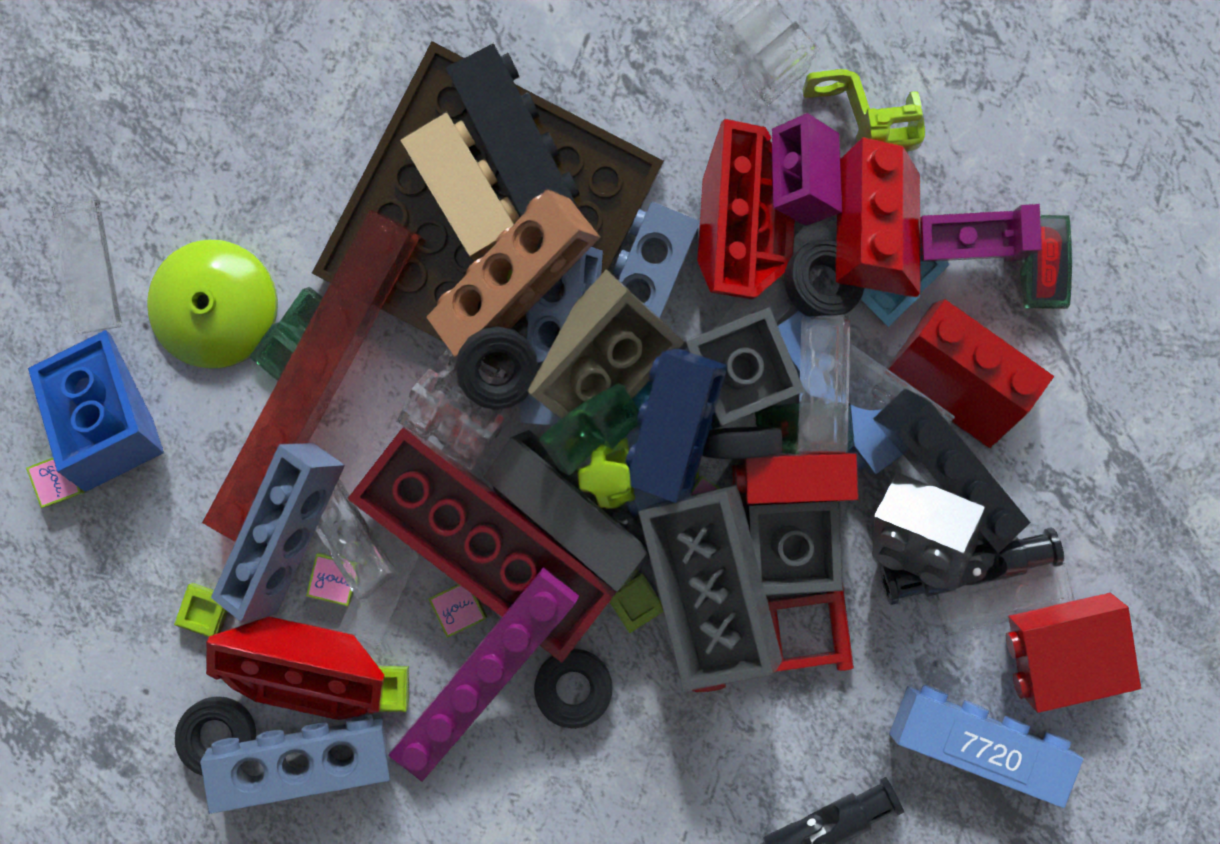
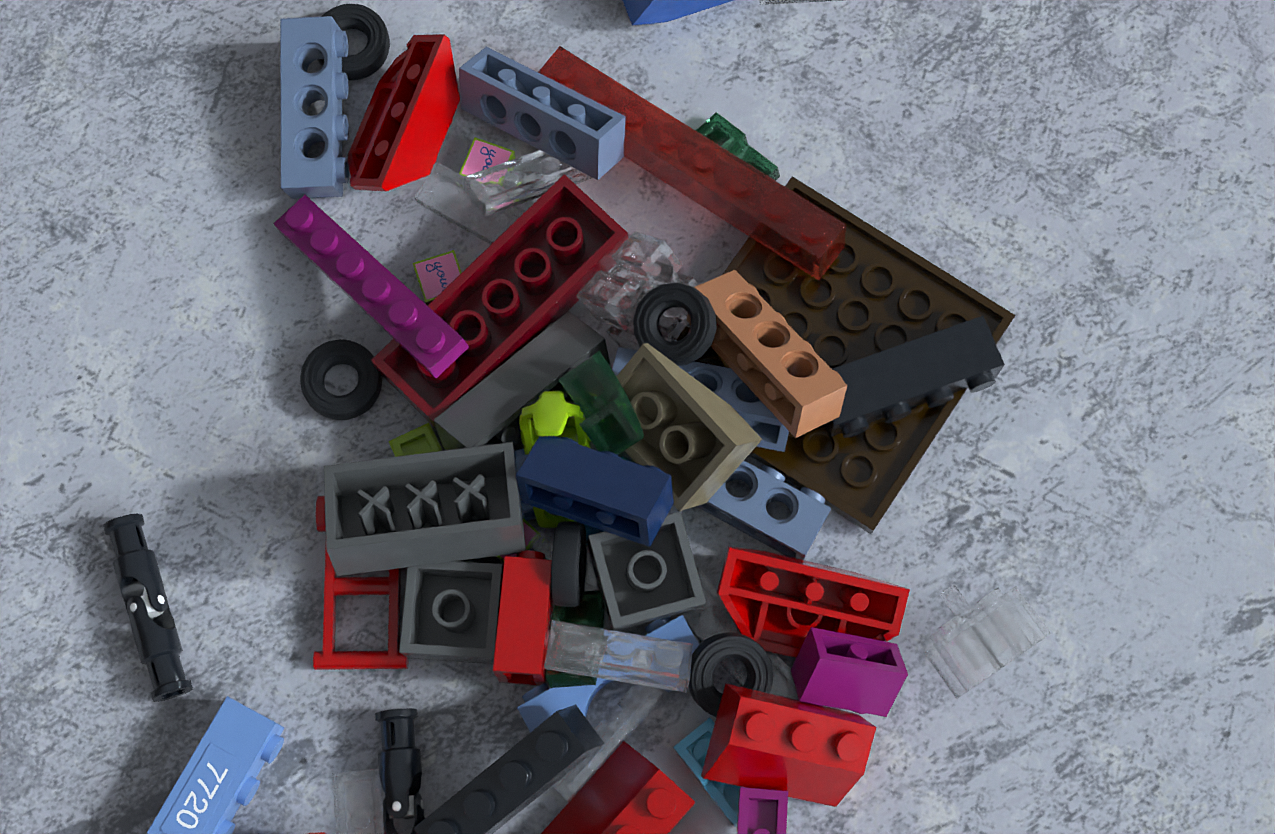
camera: 105 degrees right, 15 degrees down
(200, 612) = (472, 38): lime tile -> none
(238, 311) = (767, 107): lime dish -> none
(395, 689) = (370, 207): lime tile -> none
(460, 183) = (868, 318): tan brick -> none
(872, 122) = (894, 754): lime piece -> none
(926, 532) = (446, 747): dark grey brick -> none

